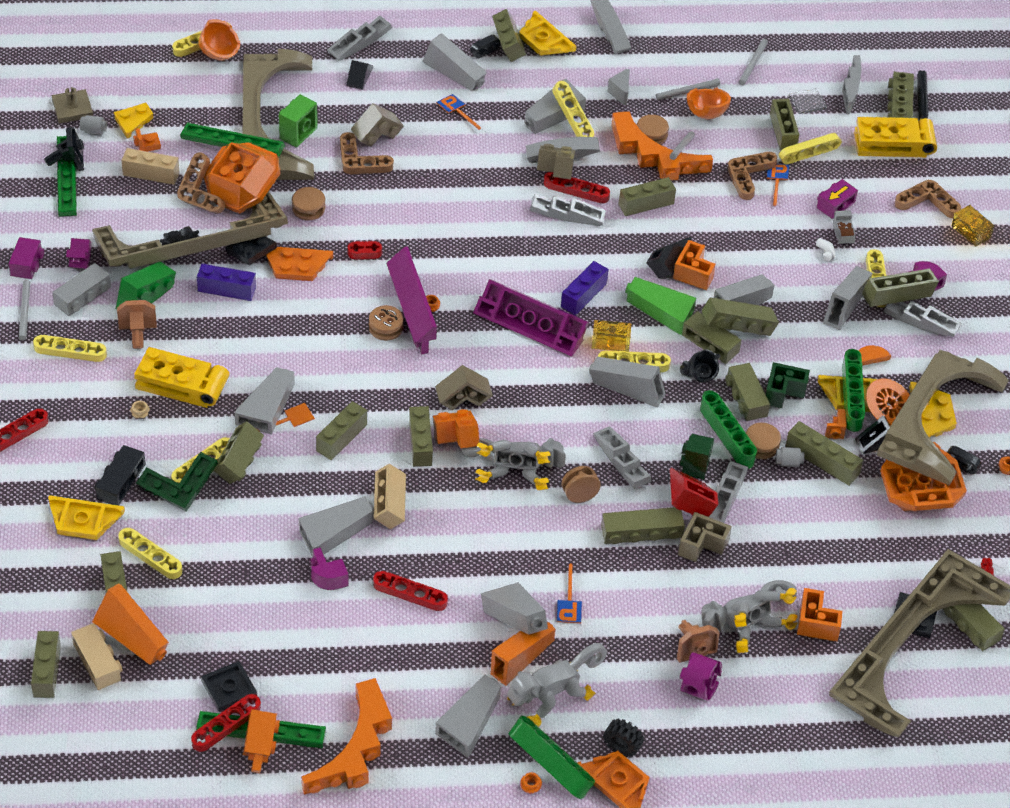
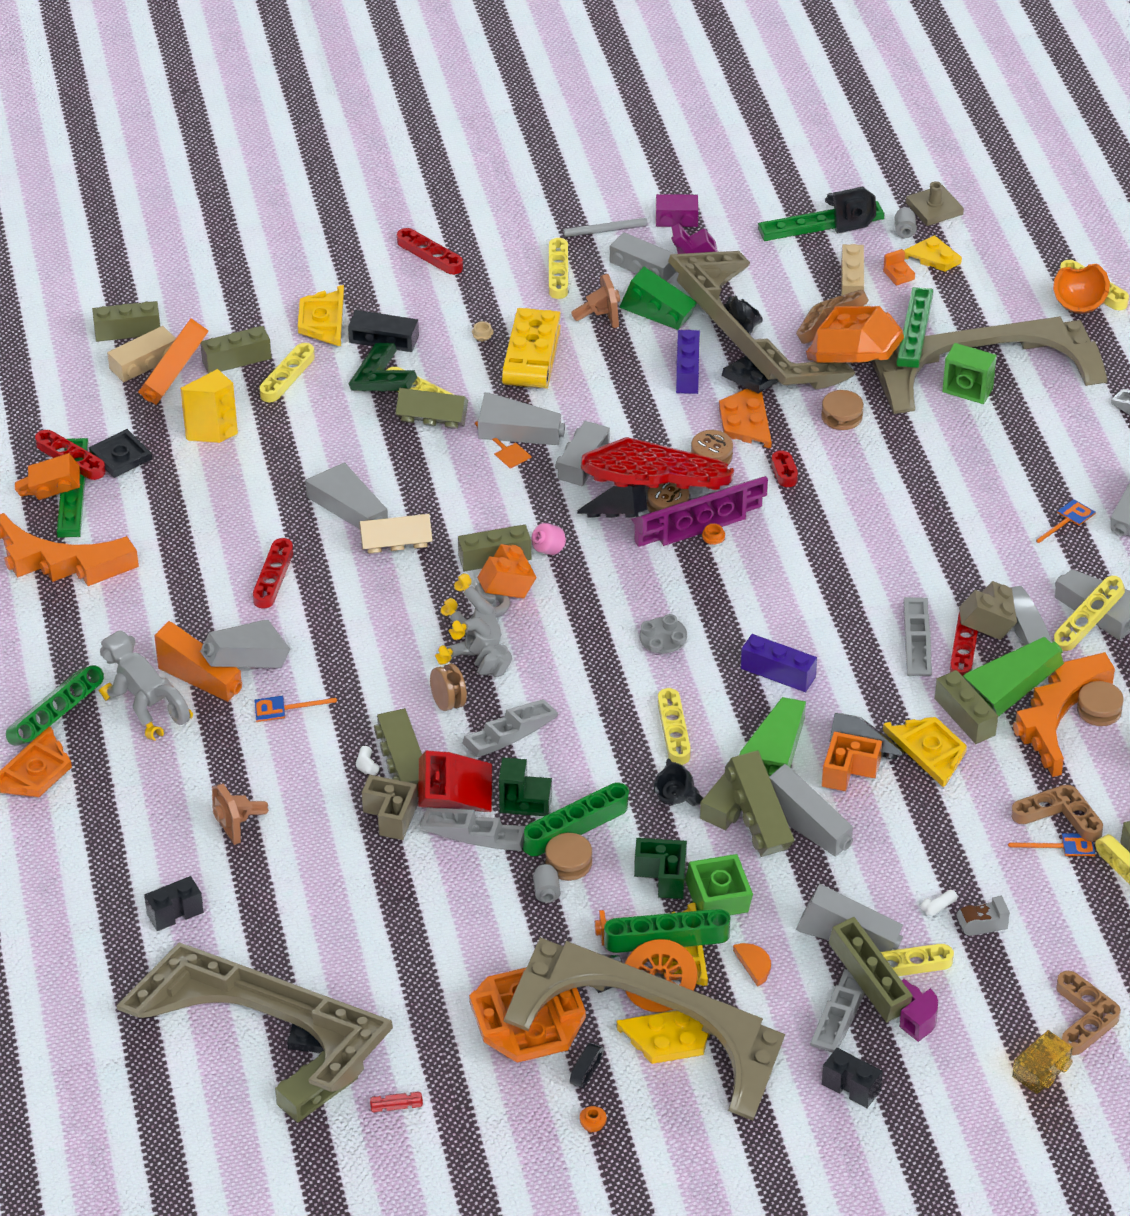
camera: 85 degrees right, 5 degrees down
(210, 598) = (209, 408): none -> yellow slope
(318, 365) = (586, 438): none -> light grey brick
(328, 575) = (282, 501): magenta brick -> none
(334, 287) = (714, 445): none -> medium nougat head
(341, 430) = (487, 483): olive brick -> none
(354, 159) = (960, 431): medium nougat beam -> none
(358, 74) = (1093, 421): black slope -> none
(368, 314) = (652, 464): none -> red plate
(375, 123) = (995, 441): dark tan brick -> none
(397, 345) = (617, 501): none -> black slope
(420, 397) = (548, 539): none -> bright pink head
(462, 386) = (574, 572): dark tan brick -> none
(469, 715) = (89, 626): light grey slope -> none
(531, 317) = (712, 622): magenta slope -> none
(531, 778) = (25, 698): orange plate -> none
(536, 350) = (663, 634): none -> light grey dish
(611, 335) = (703, 695): clear yellow brick -> none
(623, 737) = (83, 758): black tyre -> none
(626, 160) = (1015, 674): none -> bright green slope
(630, 379) = (631, 718): light grey slope -> none
(644, 554) = (365, 763): none -> white arm
(679, 224) = (929, 745): none -> yellow wing
(682, 145) = (1071, 727): light grey bar -> none
(700, 676) = (178, 818): magenta brick -> none
(747, 391) = (662, 824): olive brick -> none
(750, 609) = (286, 856): light grey animal -> none
(788, 695) = (172, 902): none -> black brick
(810, 354) = (719, 884): none -> bright green brick
(816, 620) = (287, 916): orange brick -> none
(825, 453) = (561, 911): olive brick -> none
(836, 198) = (1039, 905): magenta brick -> none
(982, 319) = (853, 1075): none -> black brick

